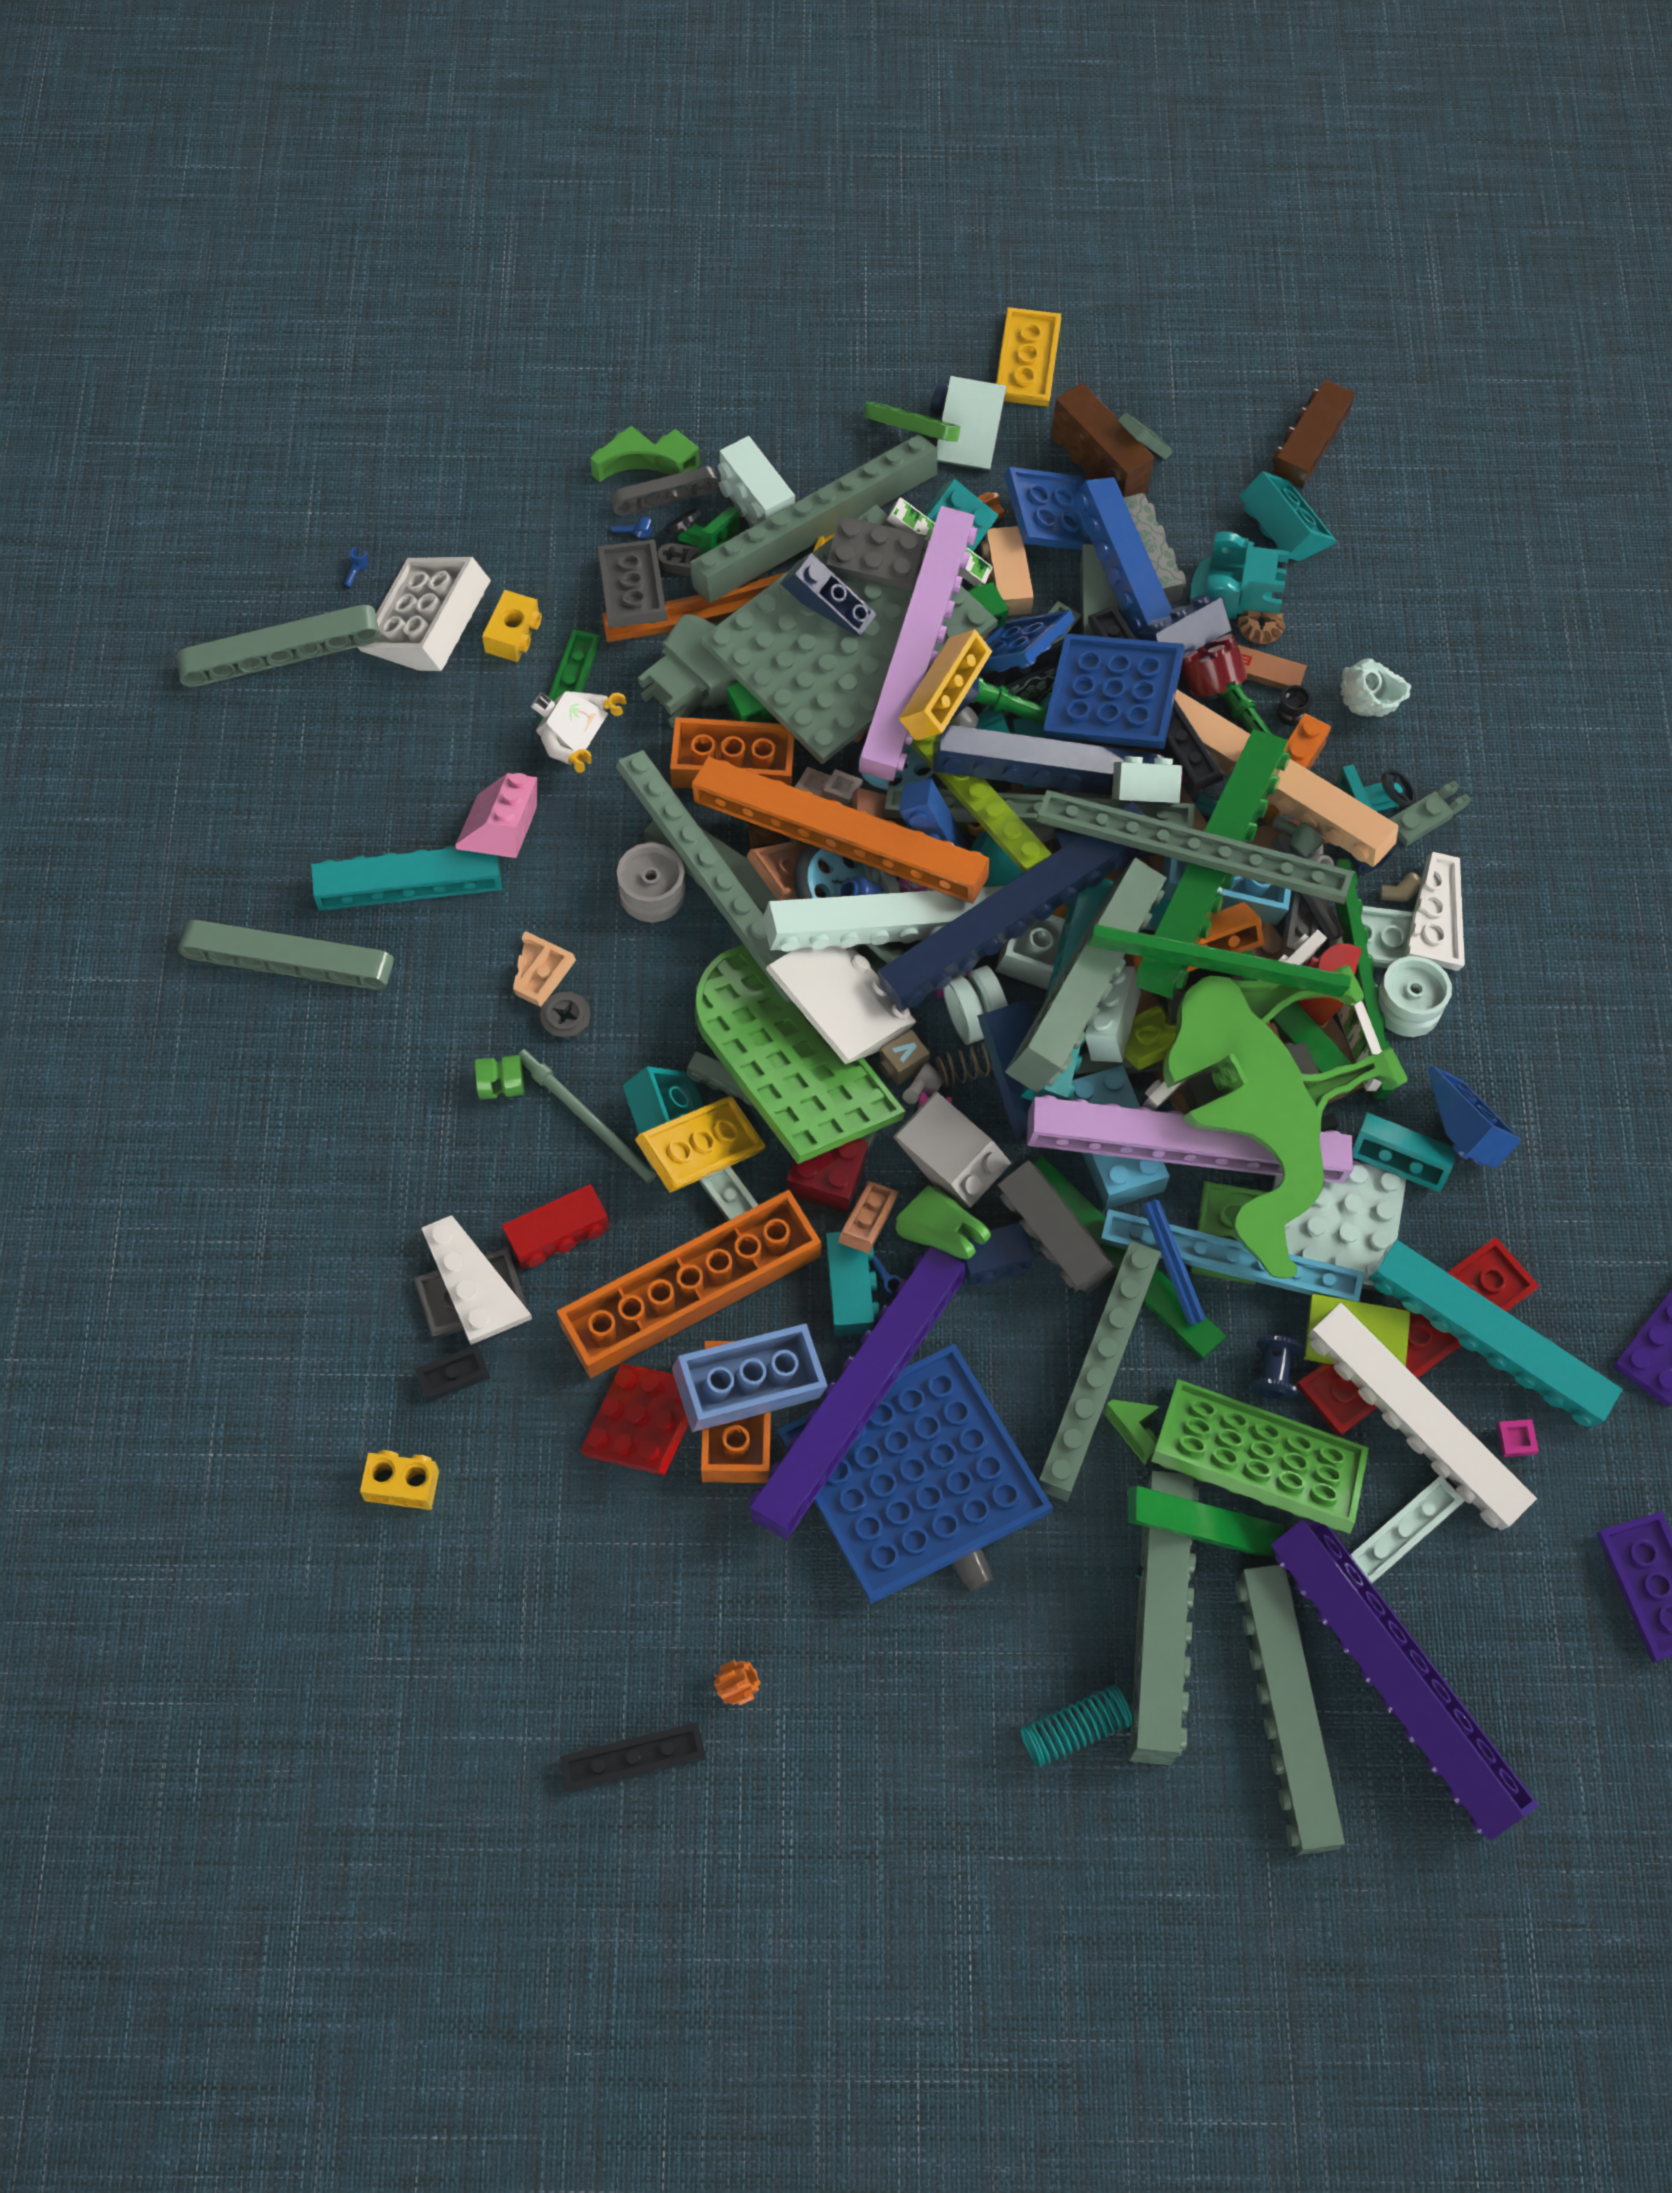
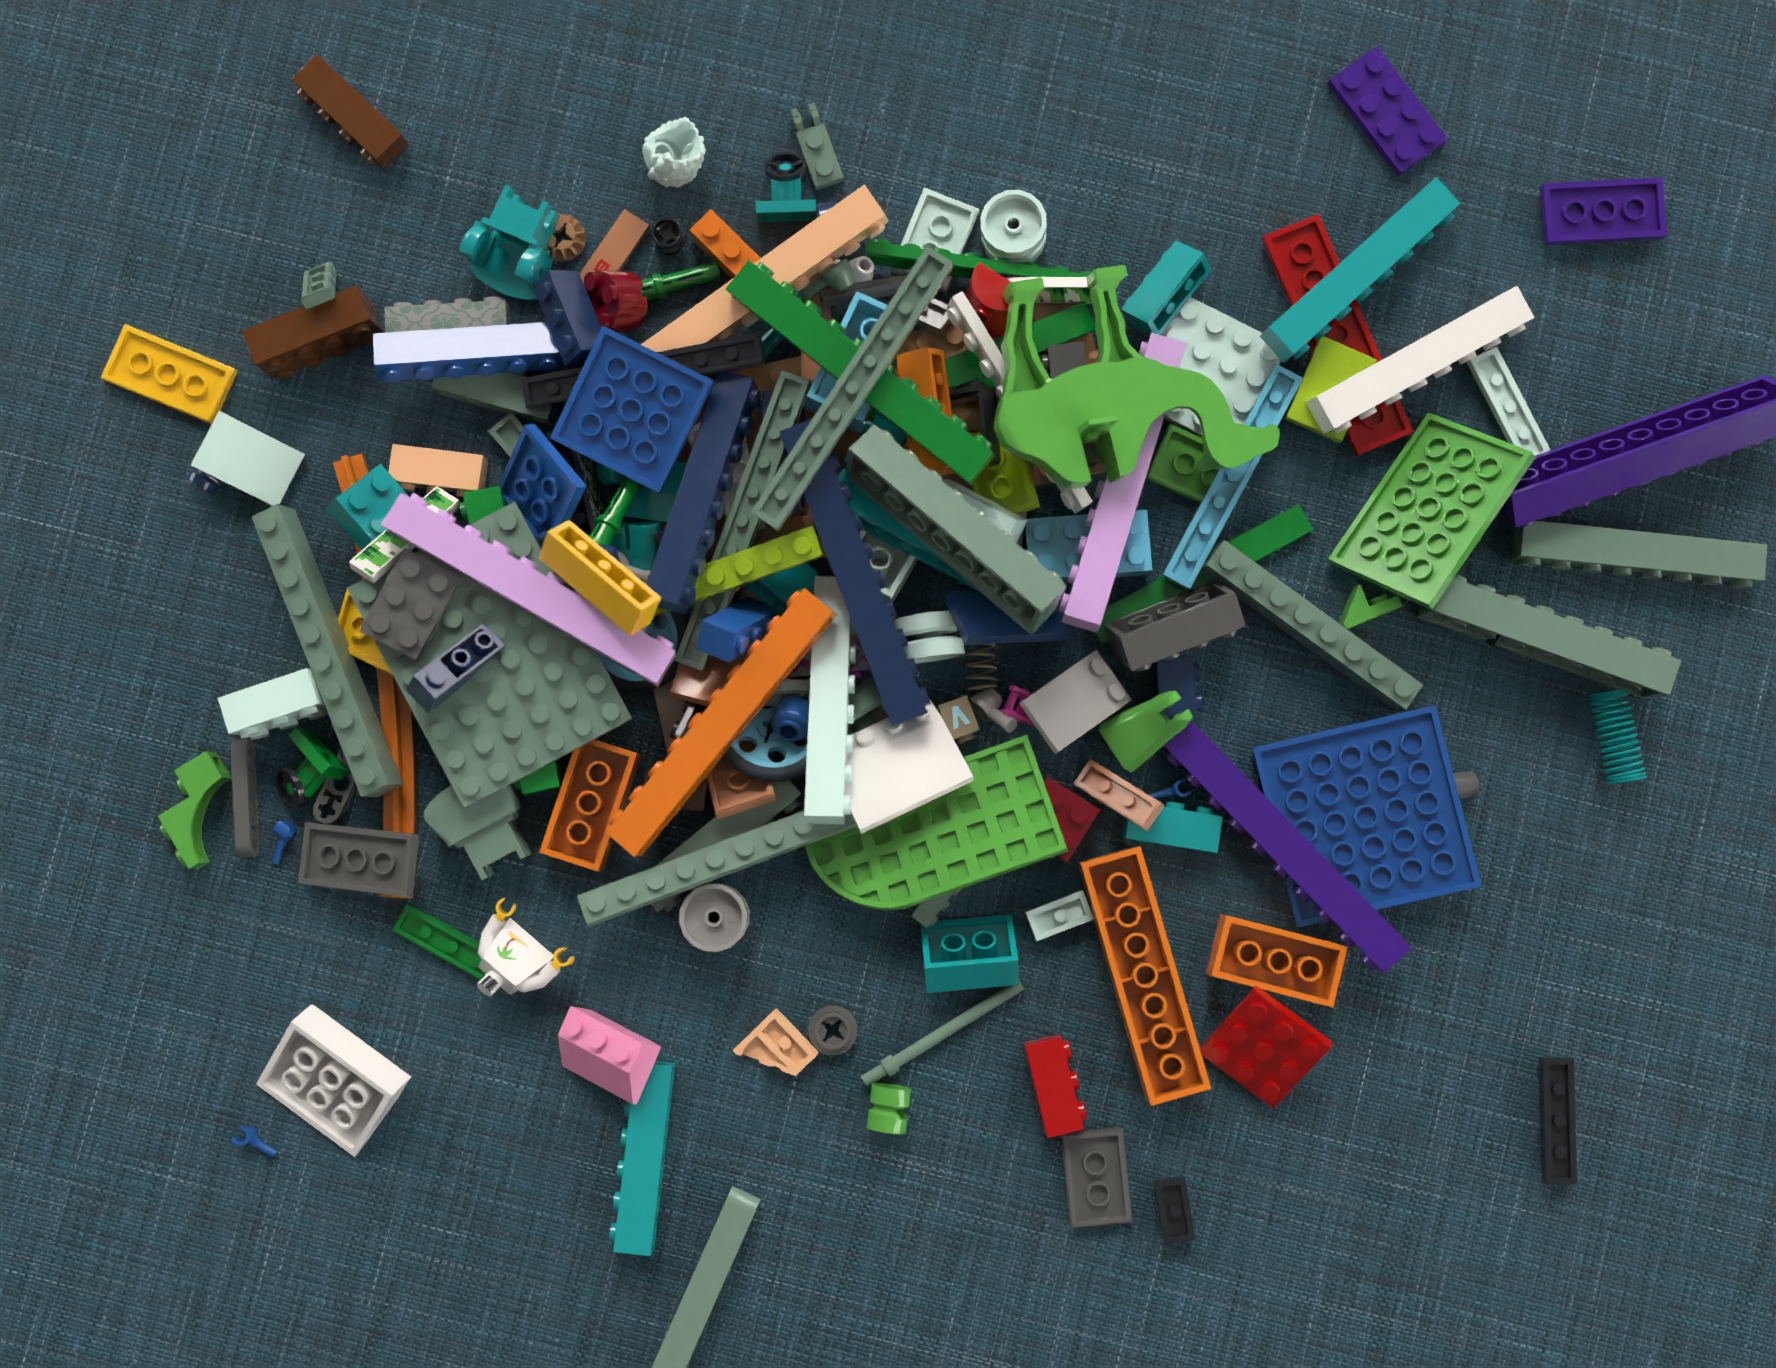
camera: 75 degrees left, 20 degrees up
(277, 645) = (338, 1241): sand green beam -> none
(397, 1488) = (1275, 1279): yellow brick -> none
(475, 1287) = (1099, 1174): white wing -> none
(501, 637) = (355, 991): yellow brick -> none
(700, 1143) = (1013, 934): yellow tile -> none
(736, 1682) = (1516, 1017): orange gear -> none
(749, 1377) = (1272, 947): medium blue brick -> none
(834, 787) = (648, 716): white slope -> none
(912, 421) = (230, 519): bright green beam -> none
(1047, 508) = (376, 411): blue plate -> none
(1147, 781) = (751, 409): light aqua brick -> none
(1173, 1262) = (1230, 531): blue axle -> none
(1202, 1522) = (1491, 586): green tile -> none
(1219, 960) = (988, 404): green tile -> none
(1276, 1367) = (1345, 471): dark blue hose -> none
(1285, 517) = (446, 172): teal slope -> none
(1404, 891) = (895, 198): dark tan arm -> none
(1437, 917) = (937, 178): white wing -> none
(1471, 1122) = (1152, 219): blue slope -> none
(1517, 1438) = (1449, 282): dark pink plate -> none

